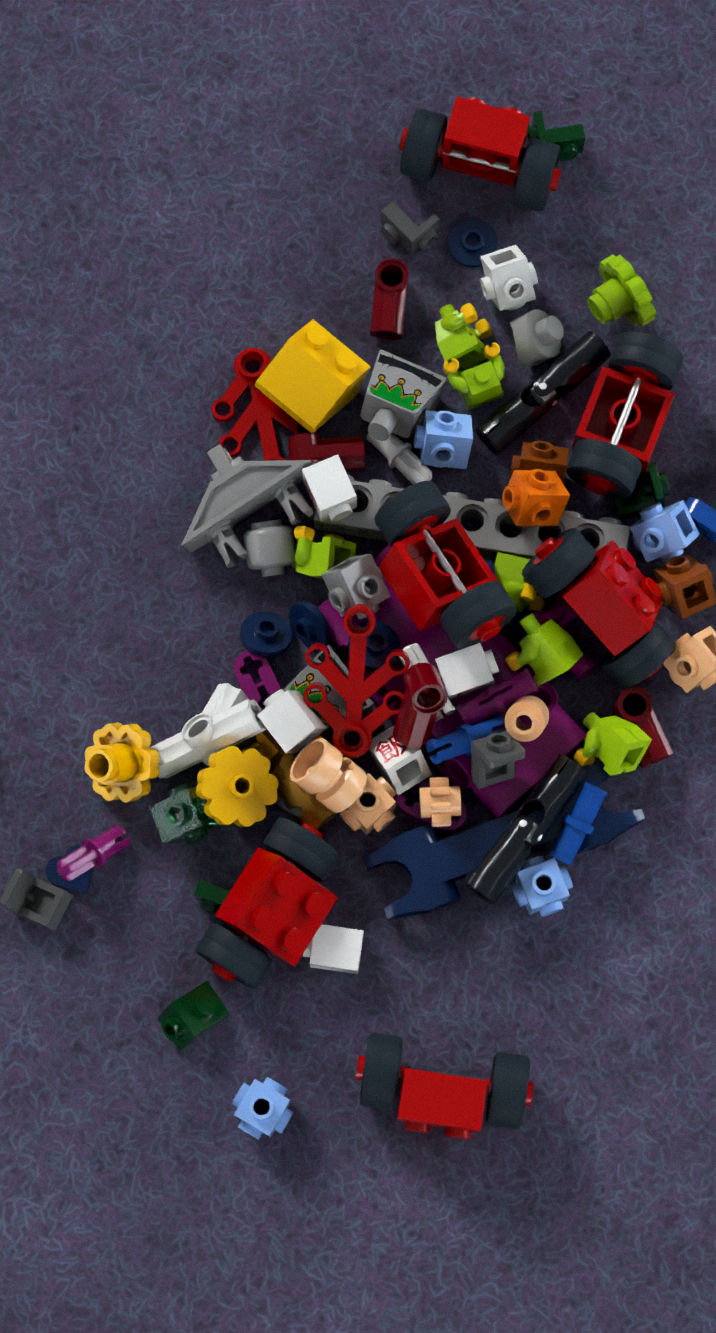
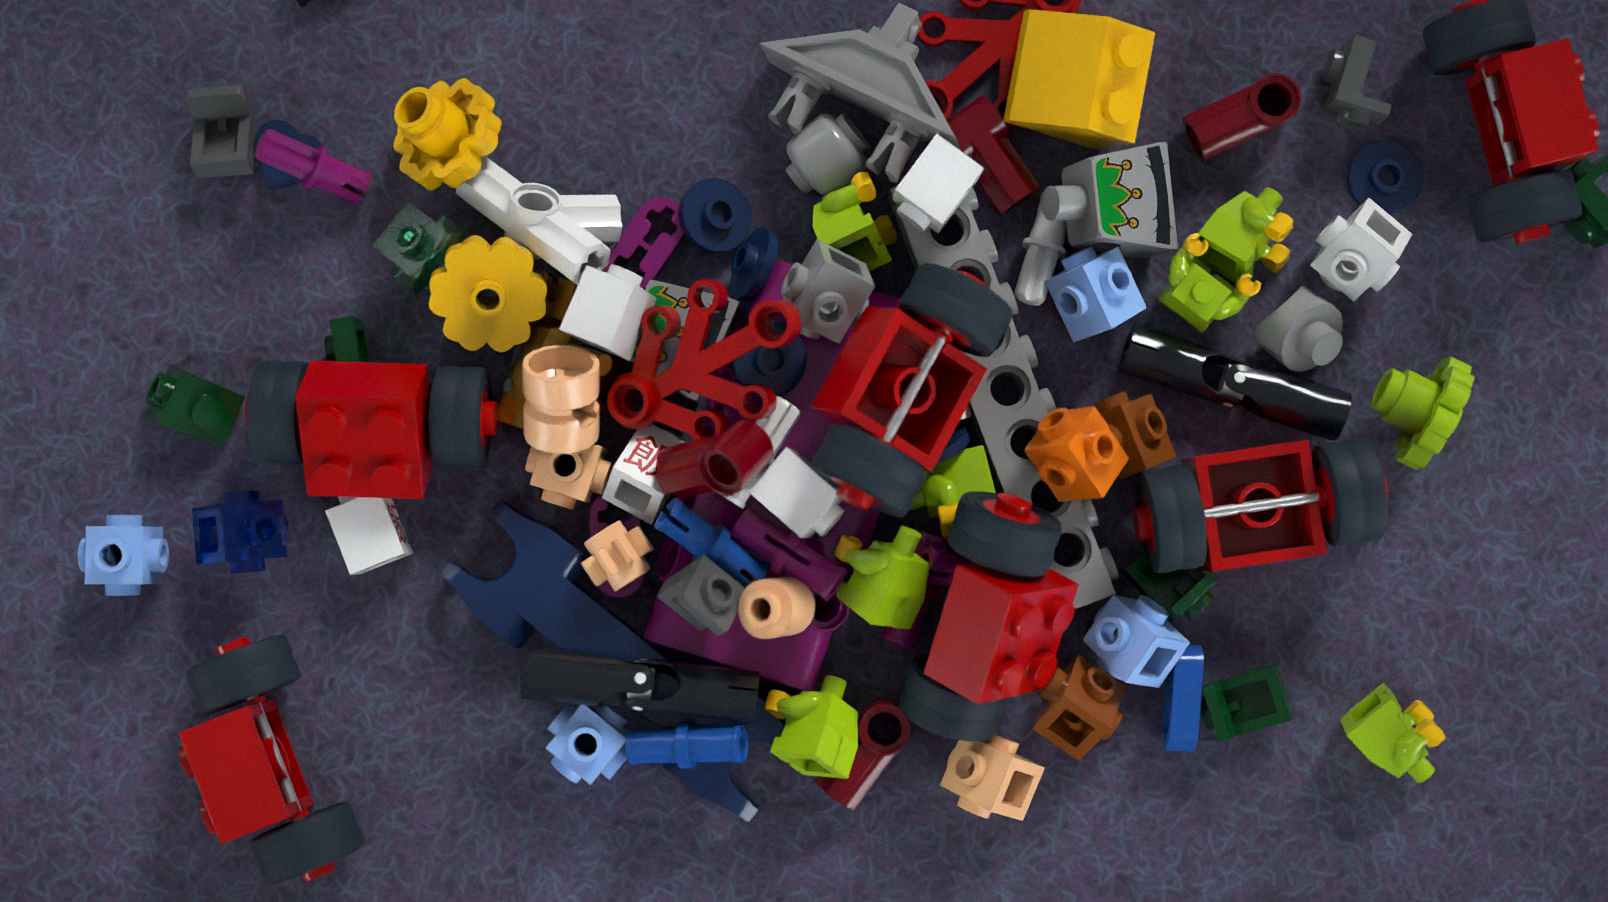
camera: 55 degrees right, 10 degrees up
(291, 1018) = (240, 532): none -> clear blue brick

